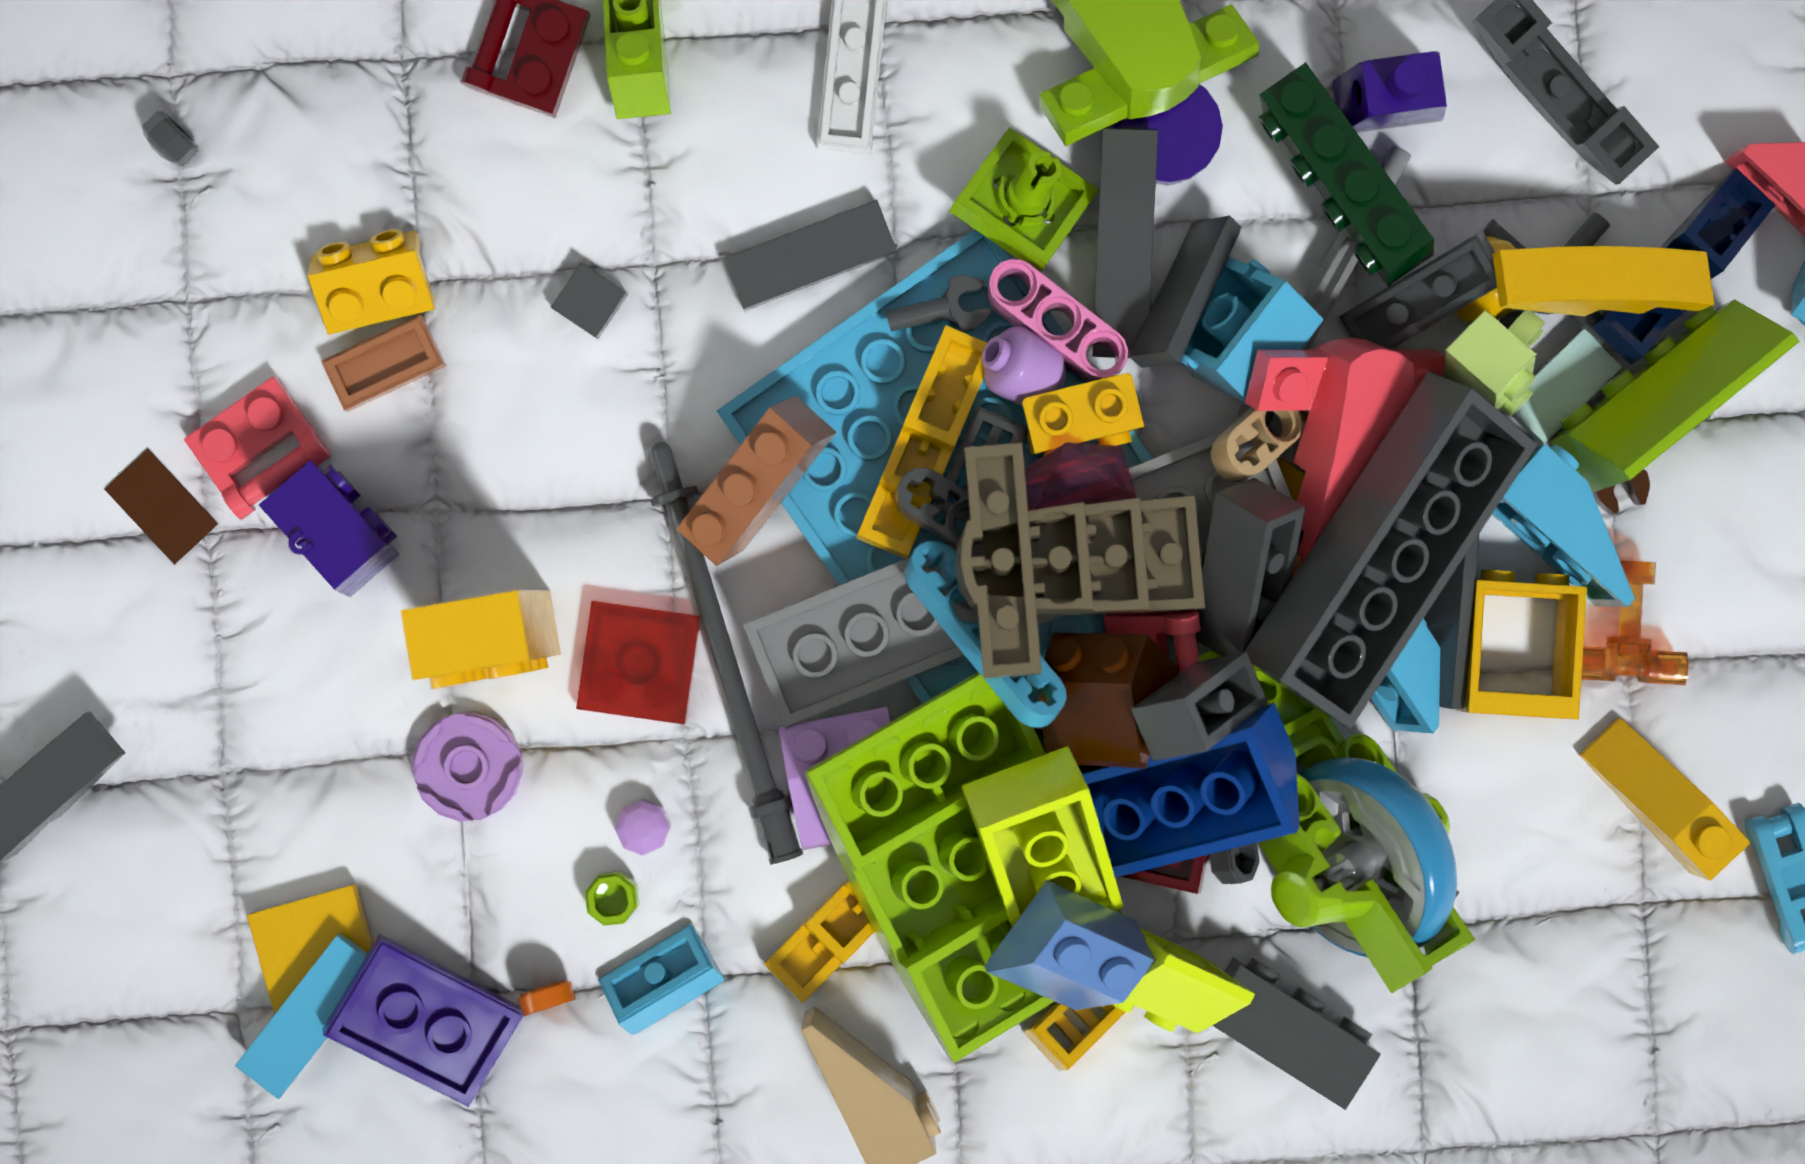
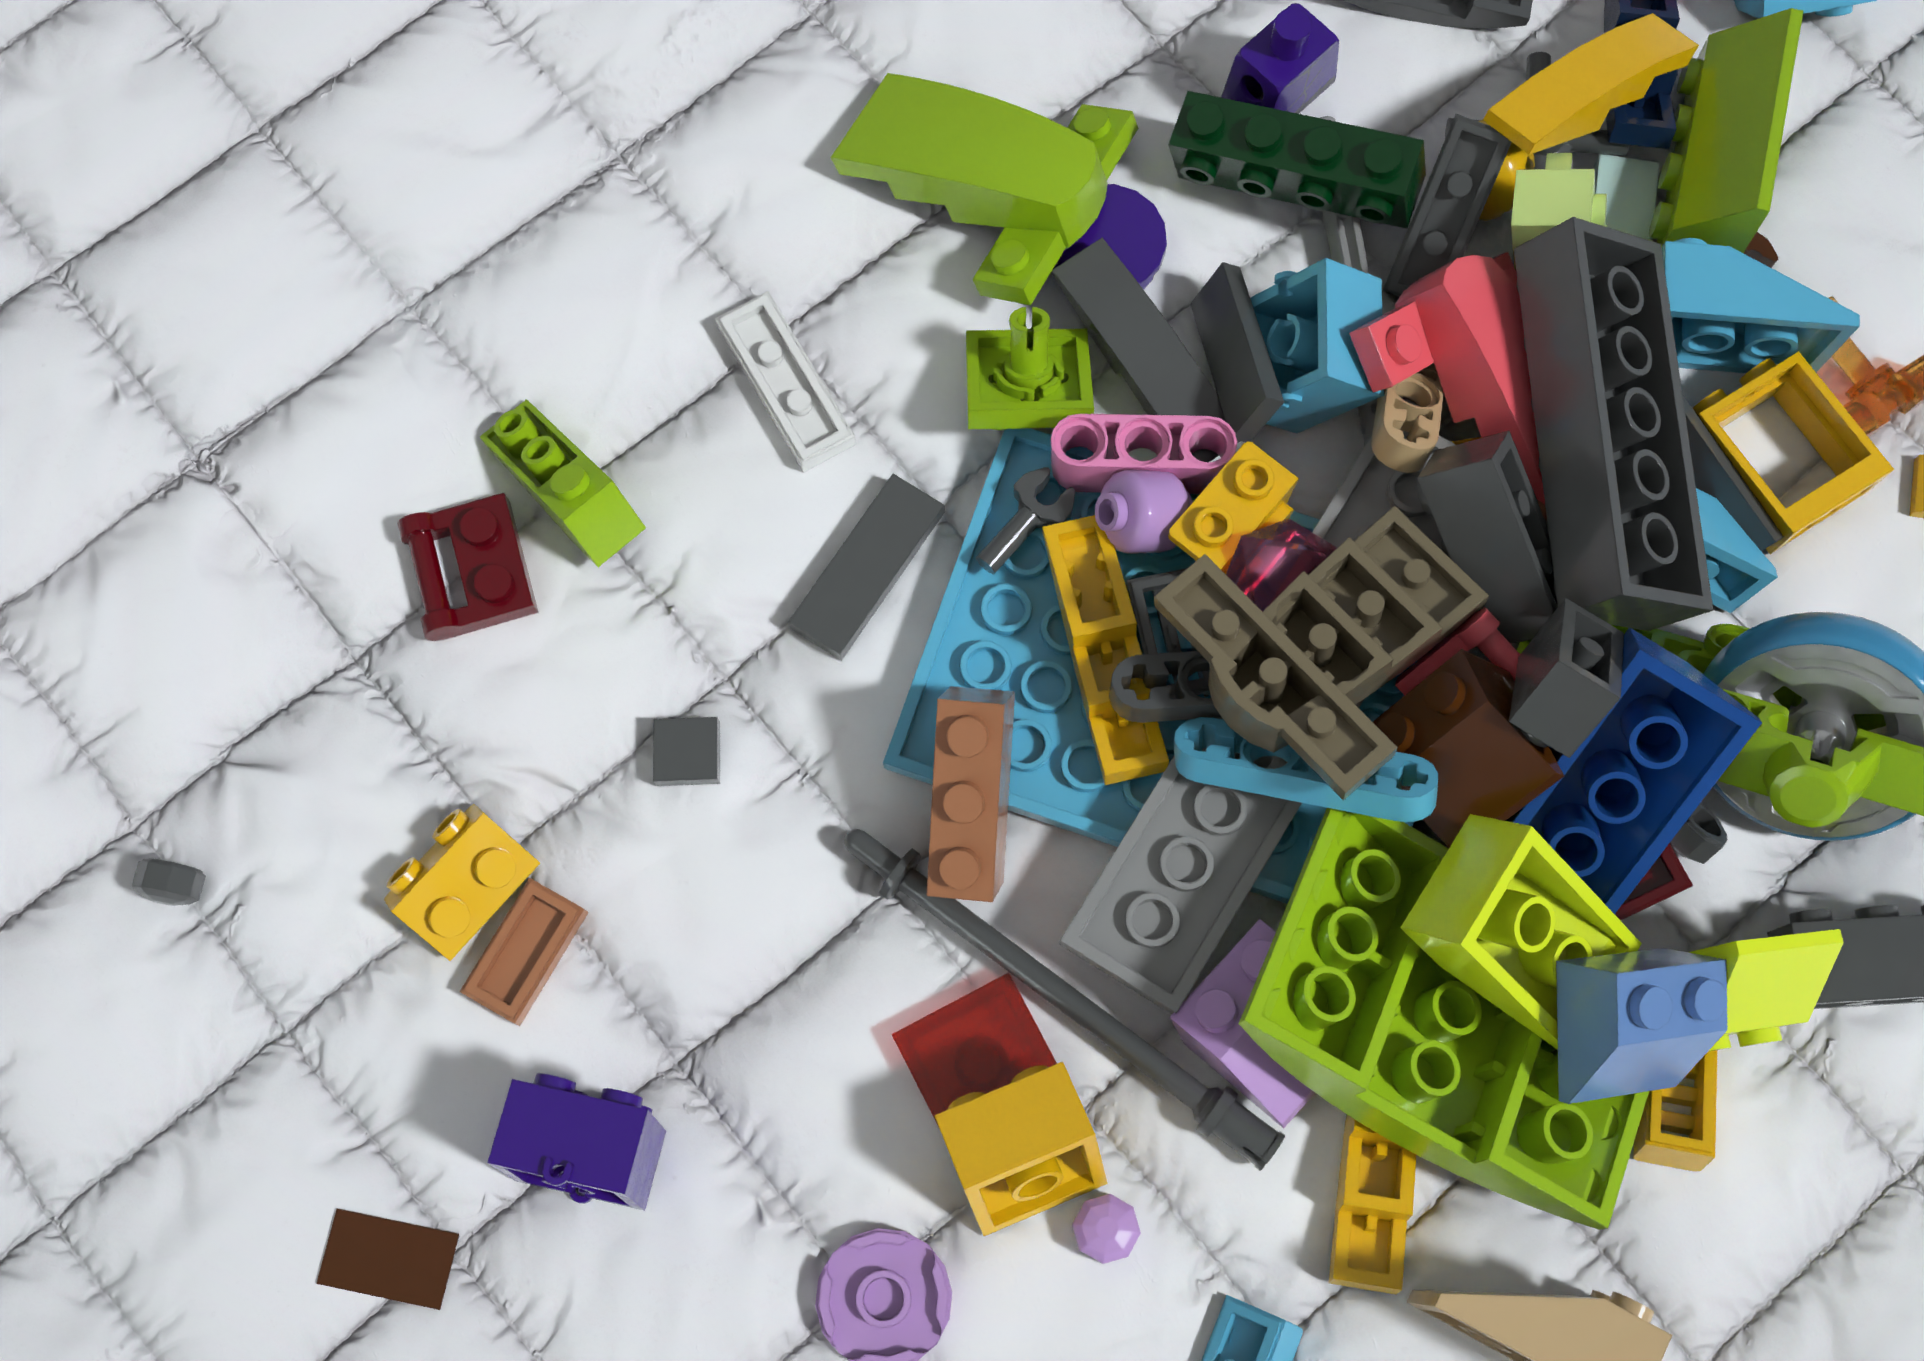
camera: 30 degrees left, 15 degrees down
(247, 433) = (430, 1119): coral plate -> none
(481, 637) = (808, 1130): yellow brick -> none
(612, 898) = (1129, 1326): lime tile -> none
(620, 737) = (1022, 1147): none -> yellow slope

